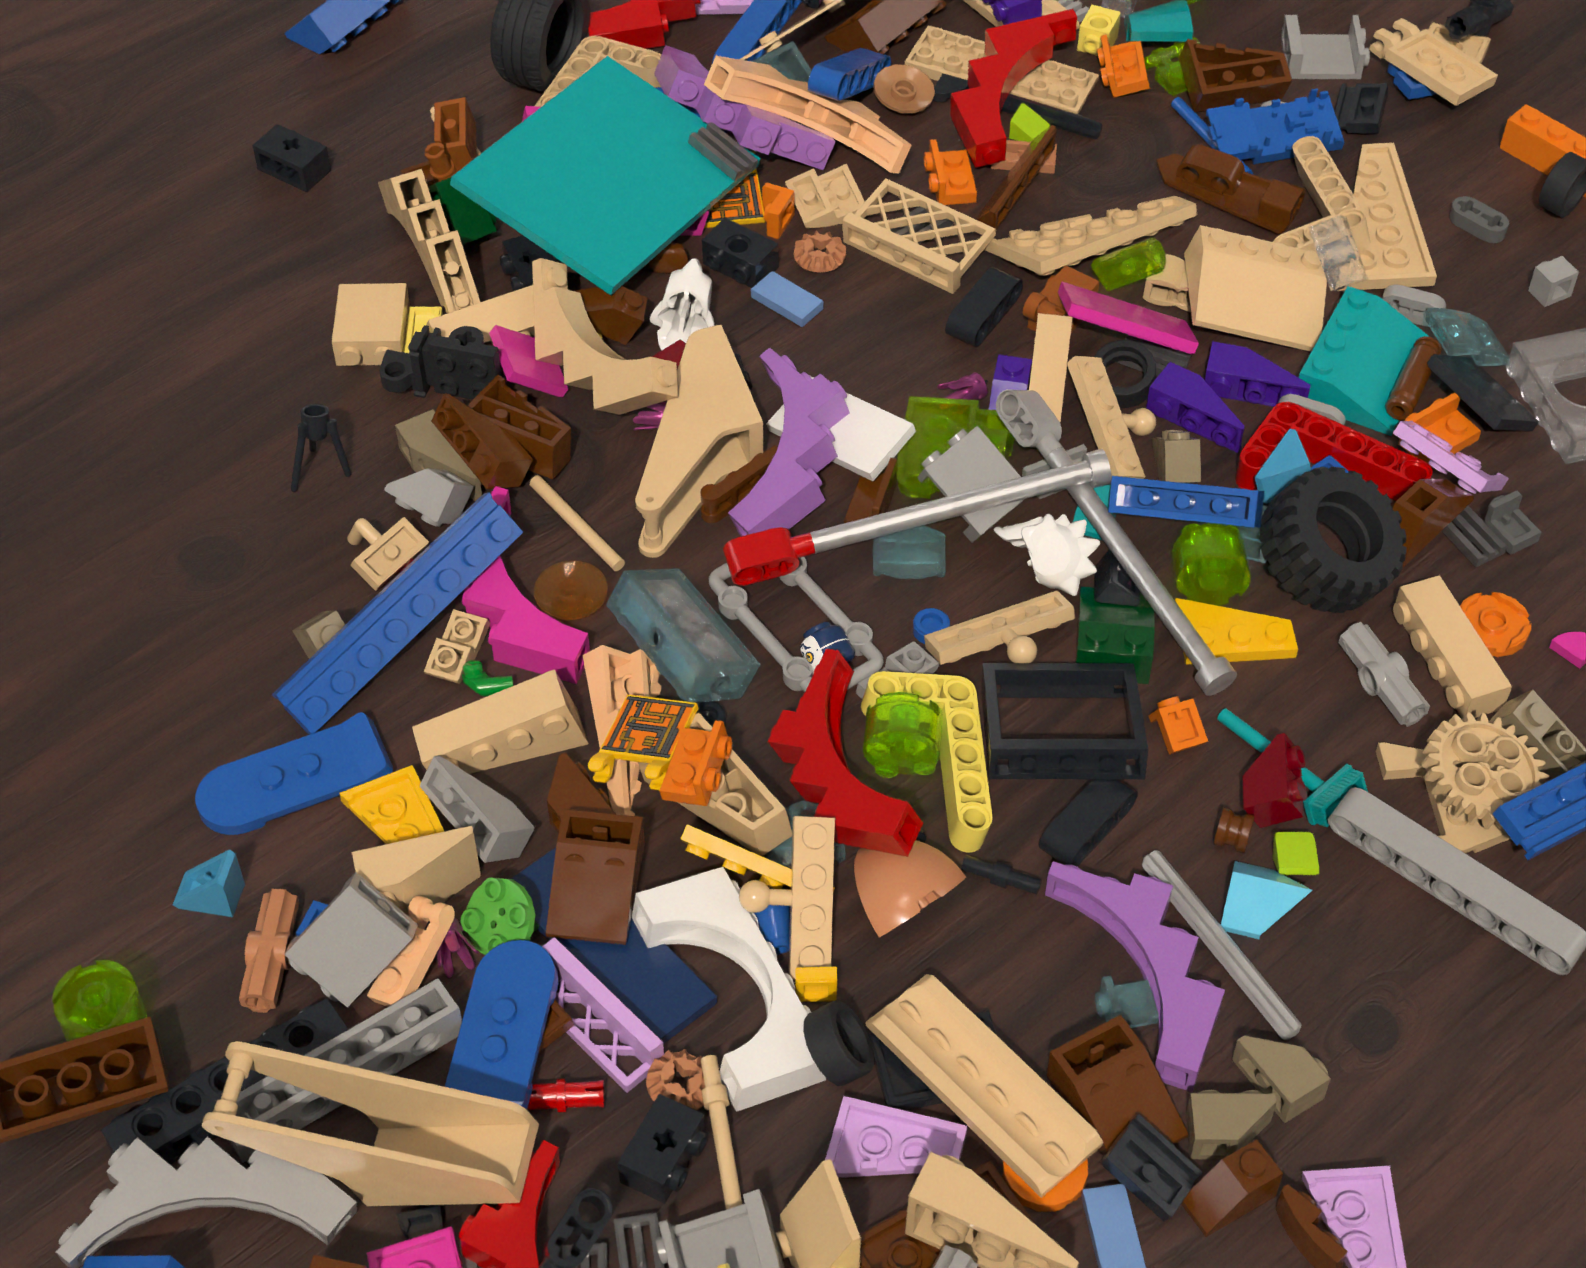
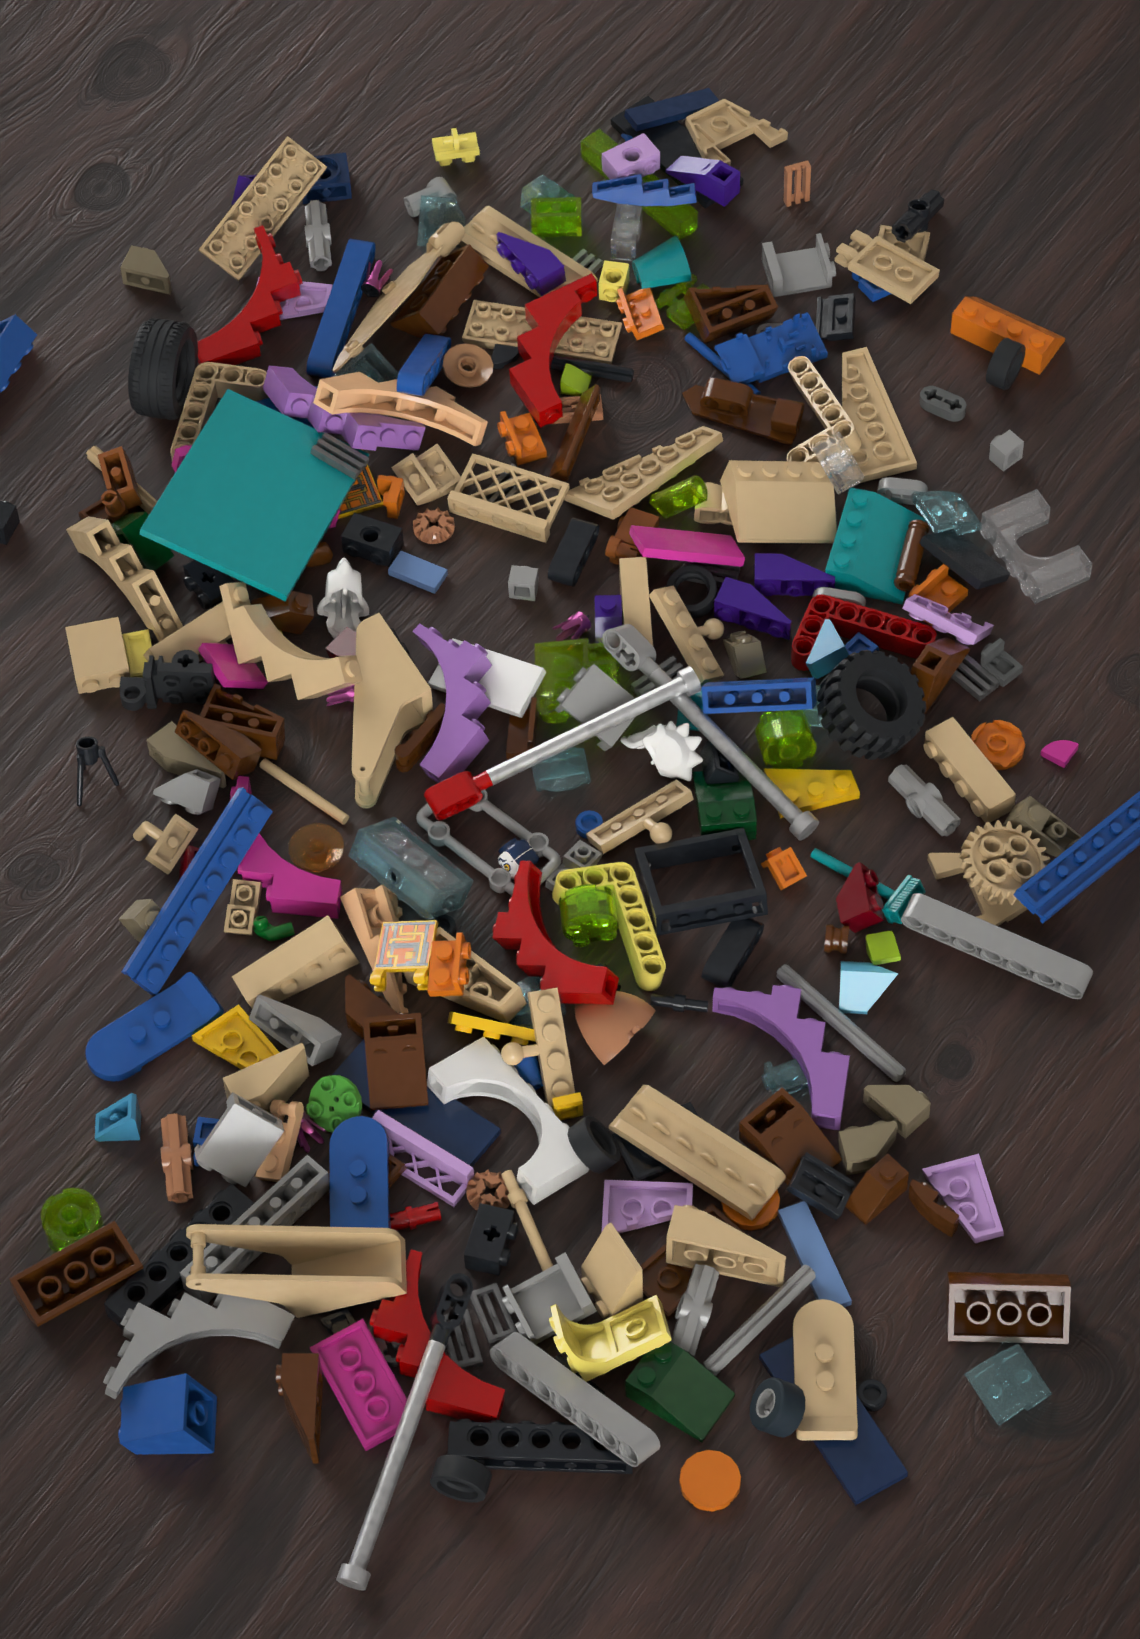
camera: 10 degrees left, 5 degrees up
(913, 330) = (523, 583): none -> light grey plate

